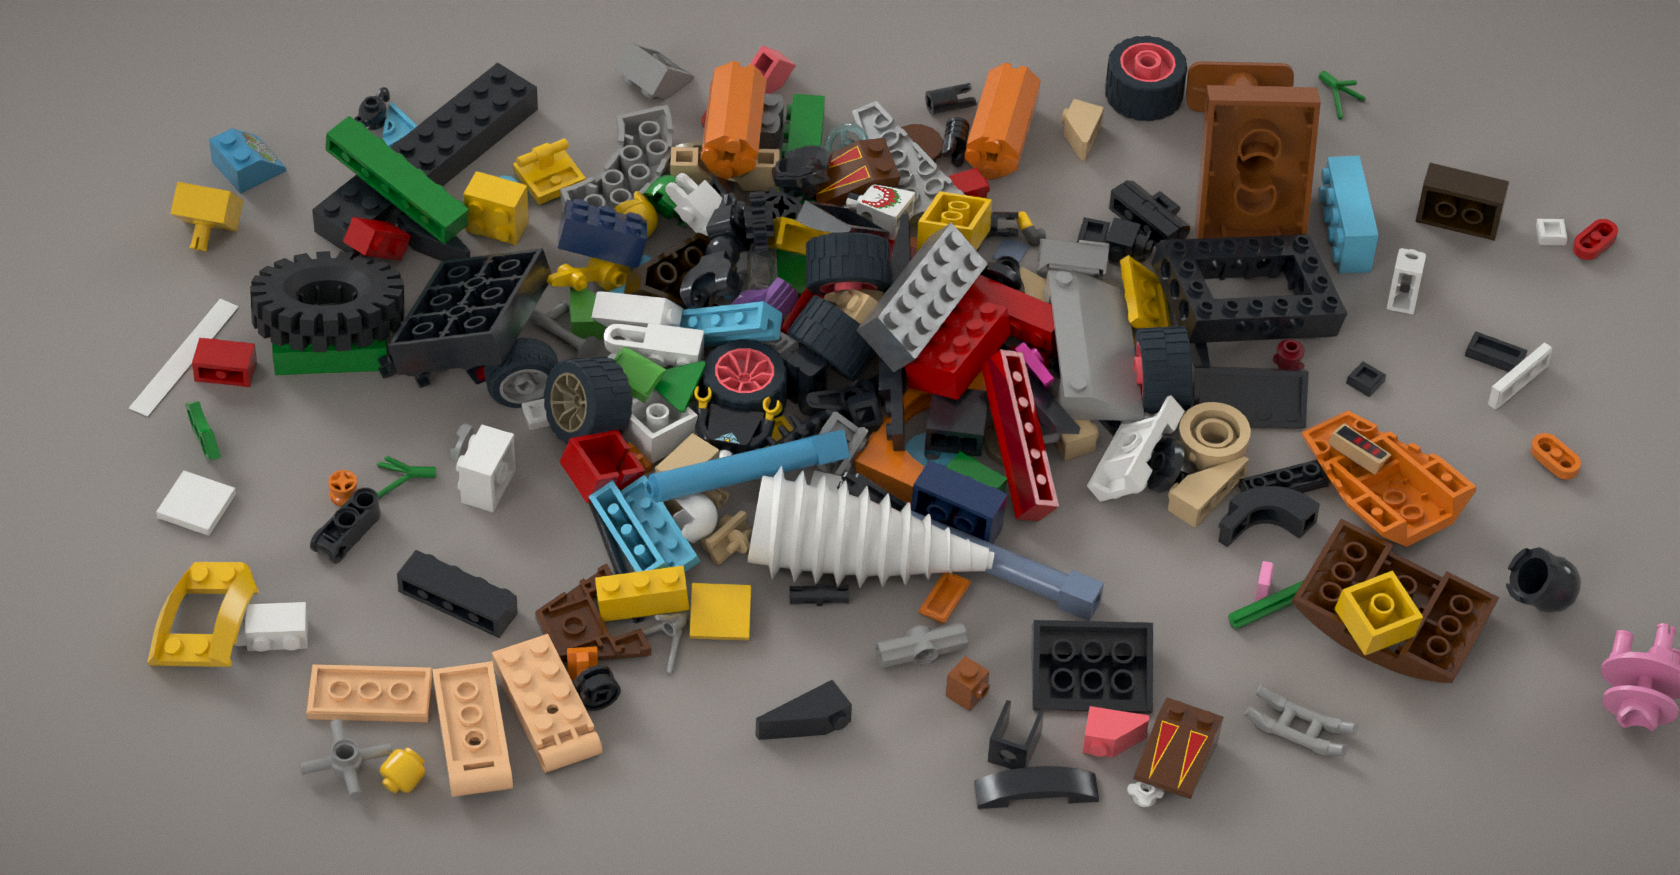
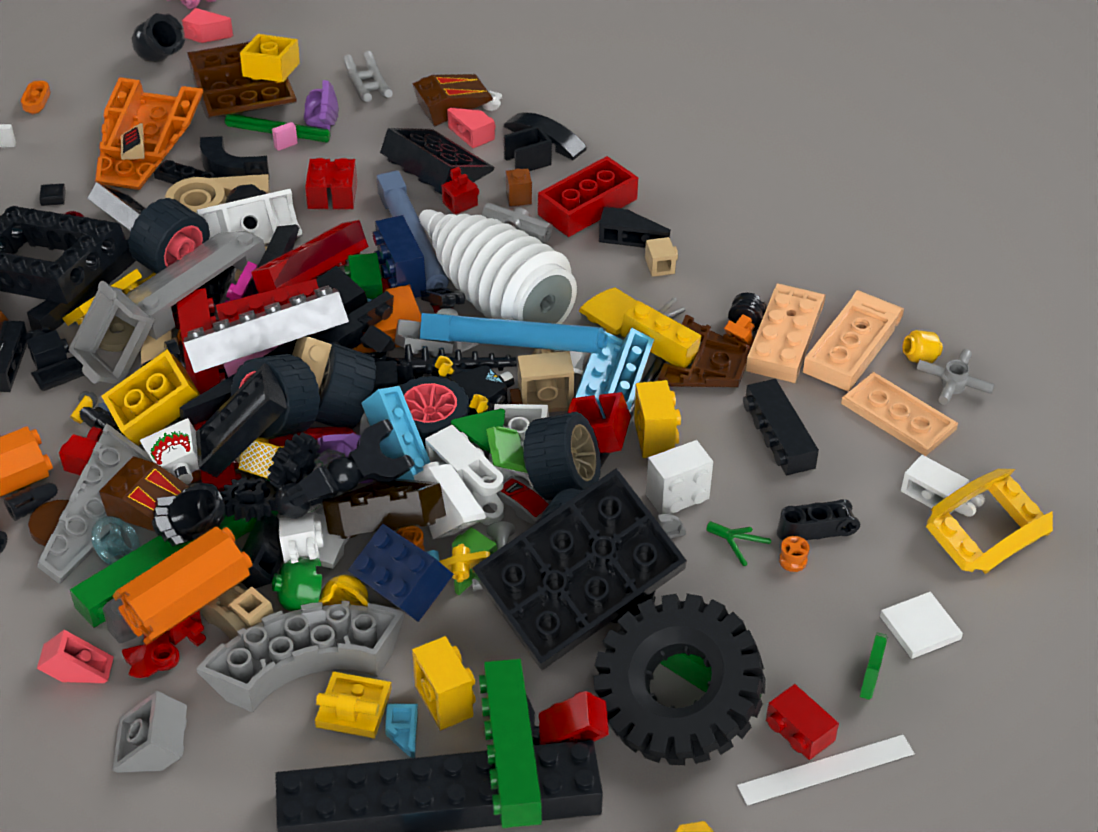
camera: 135 degrees left, 5 degrees down
(561, 507) = (656, 417): none -> yellow brick
(744, 702) = (661, 256): none -> tan brick
(886, 714) = (582, 196): none -> red brick
(1012, 636) = (459, 193): none -> red brick
(1135, 556) = (337, 175): none -> red piece
(1264, 628) = (321, 107): none -> medium lavender hair
(1555, 661) = (206, 26): none -> coral slope

